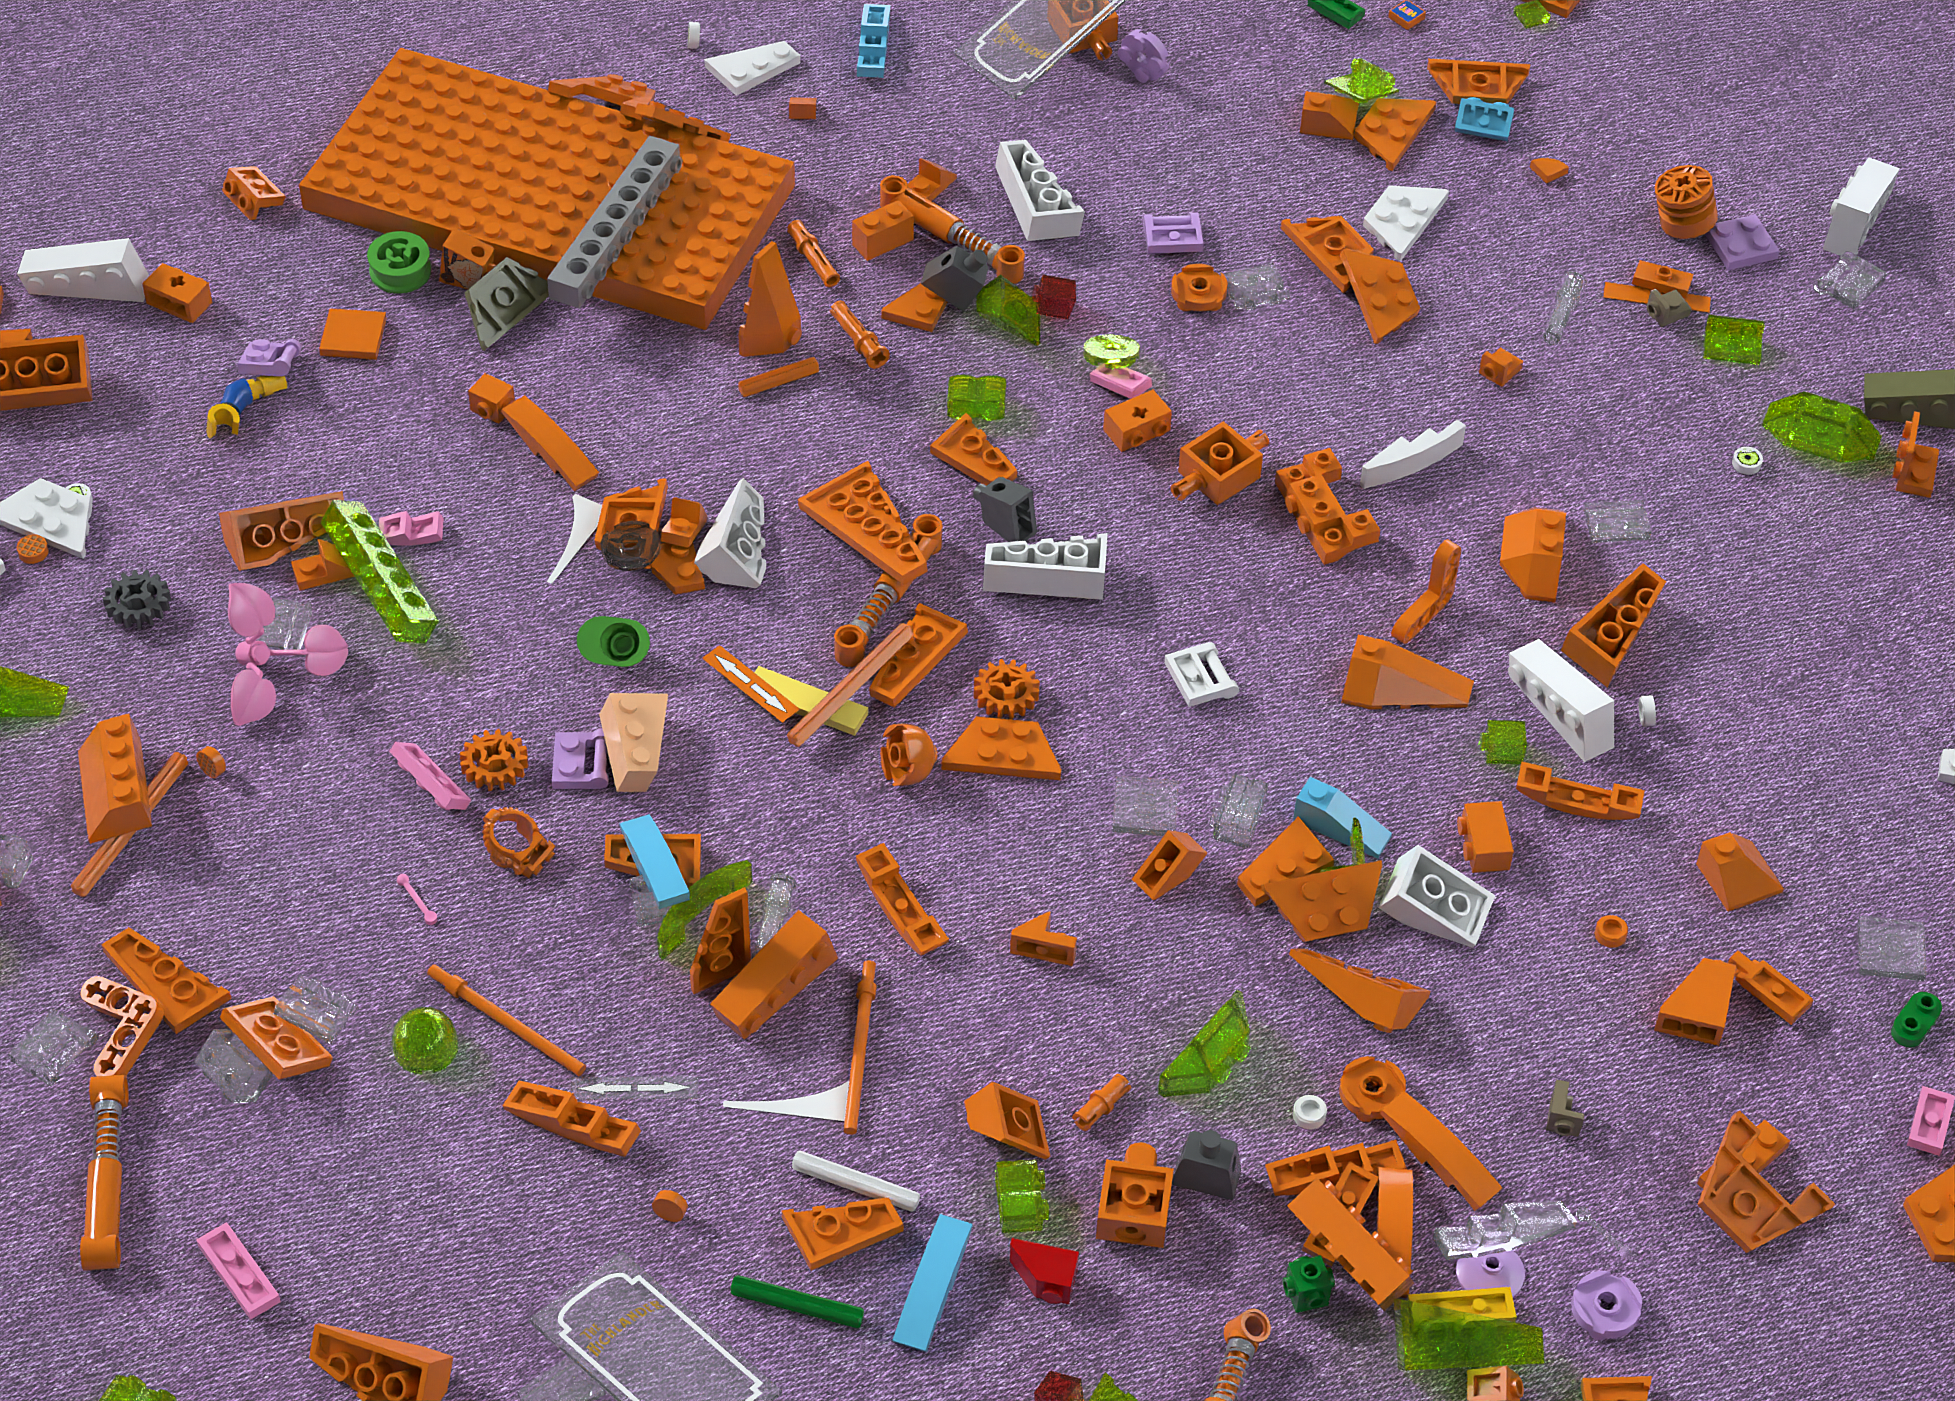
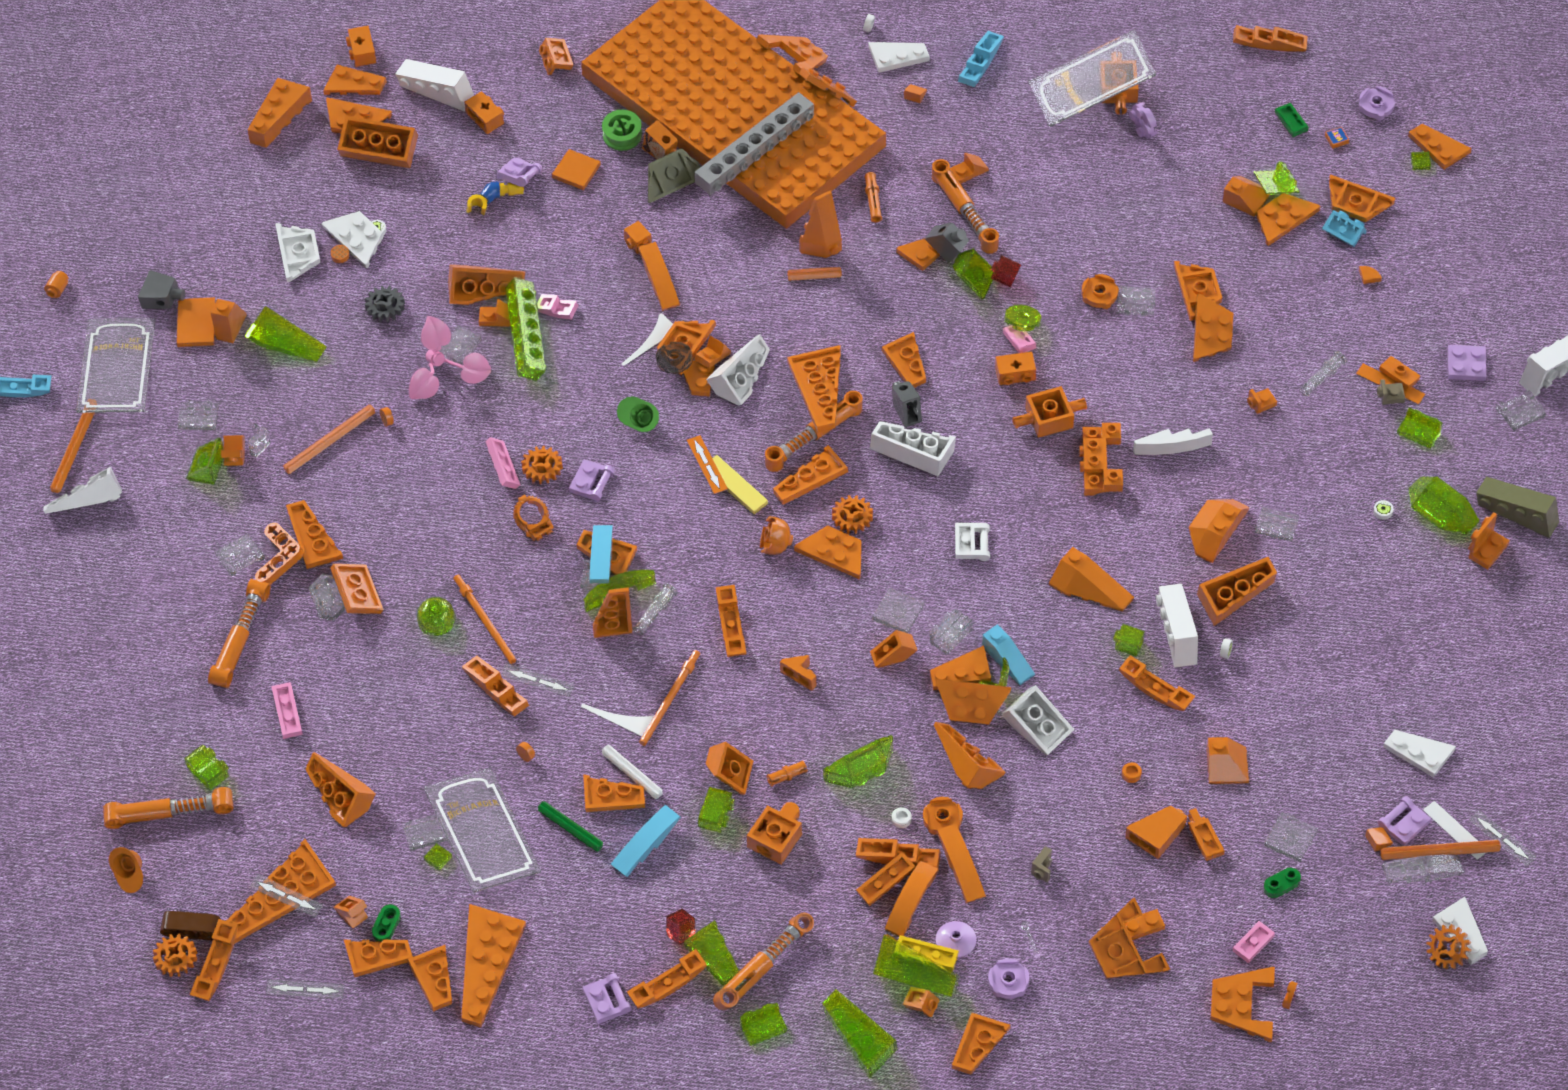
camera: 25 degrees right, 5 degrees up
(114, 780) = (329, 411): orange slope -> none
(320, 1015) = (380, 580): clear plate -> none
(429, 916) = (469, 546): bright pink hinge -> none
(633, 737) = (623, 476): light nougat wedge -> none
(775, 975) = (639, 642): orange wedge -> none
(849, 685) = (762, 483): orange axle -> none
(864, 341) = (876, 266): orange pin -> none
(882, 230) = (921, 194): orange brick -> none
(978, 397) = (925, 323): clear neon green brick -> none
(1036, 197) = (1028, 205): white wedge -> none
(1045, 1269) = (711, 855): red slope -> none
(1173, 233) = (1100, 252): lavender plate -> none
(1208, 1165) = (826, 828): dark grey torso -> none
(1308, 1283) = (848, 910): green brick -> none
(1351, 1244) = (878, 897): orange wedge -> none
(1403, 215) = (1257, 279): white wing -> none
(1439, 592) = (1139, 536): orange beam -> none
(1485, 836) = (1086, 693): orange brick -> none
(1513, 1228) = (975, 920): clear slope -> none
(1686, 201) = (1438, 325): orange wheel -> none

